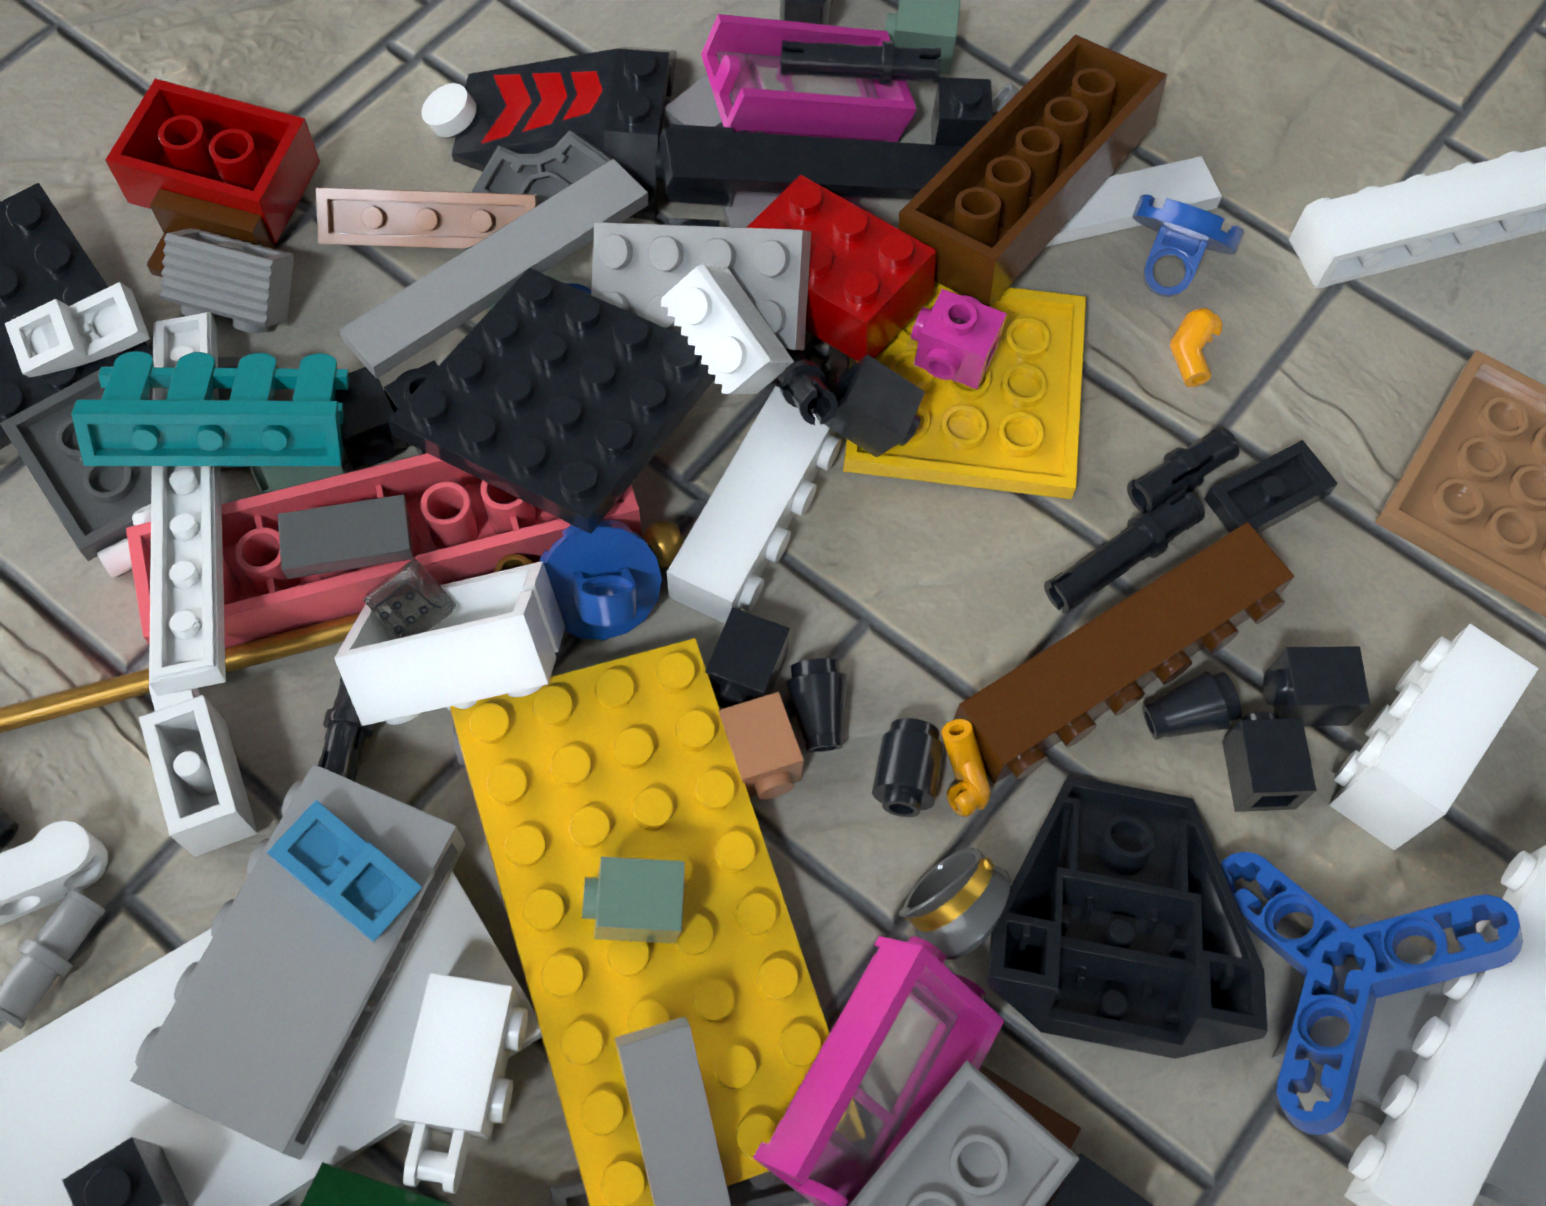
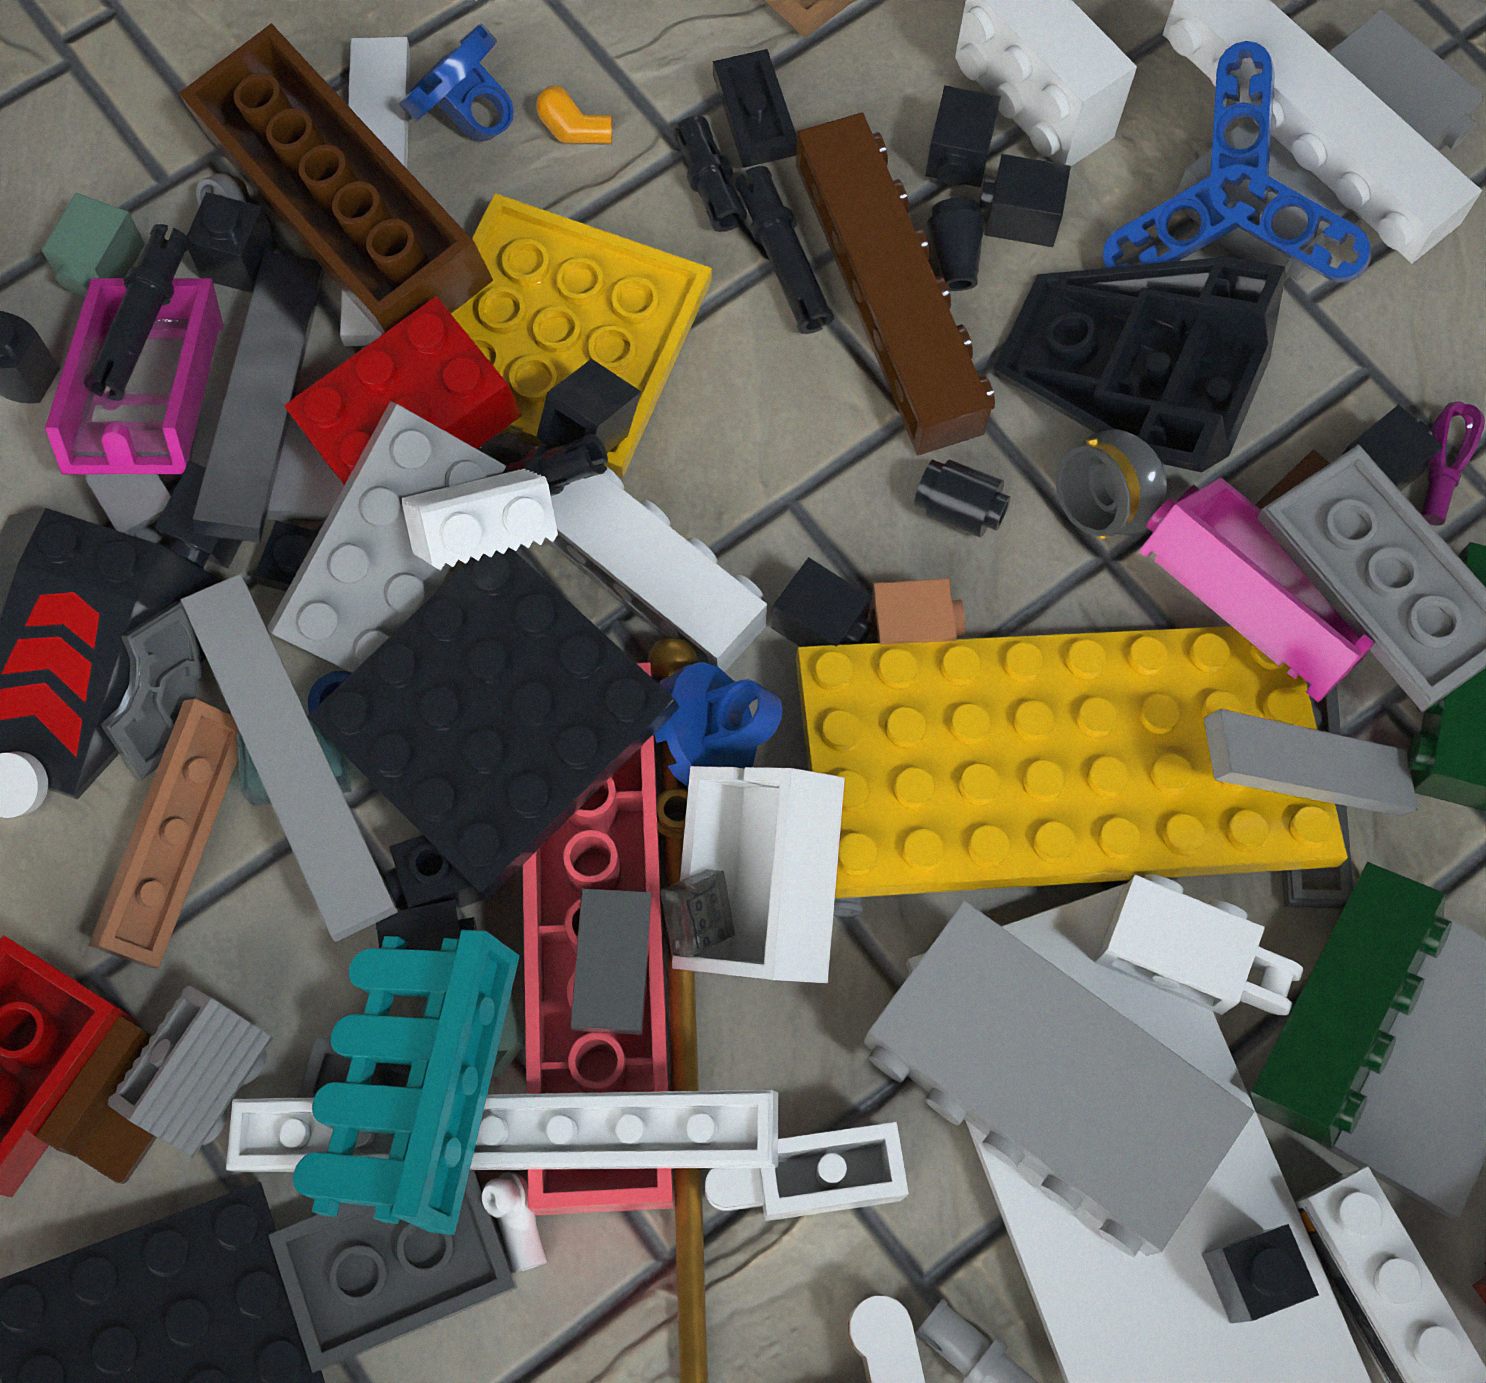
camera: 75 degrees left, 5 degrees up
(78, 334) = (221, 1257): white slope -> none
(343, 737) = (790, 1018): black pin -> none
(344, 871) = (996, 1009): dark azure slope -> none
(635, 900) = (1075, 745): sand green brick -> none
(819, 702) = (873, 557): black cone -> none
(957, 338) = (531, 313): dark pink brick -> none
(968, 768) = (976, 449): light orange arm -> none

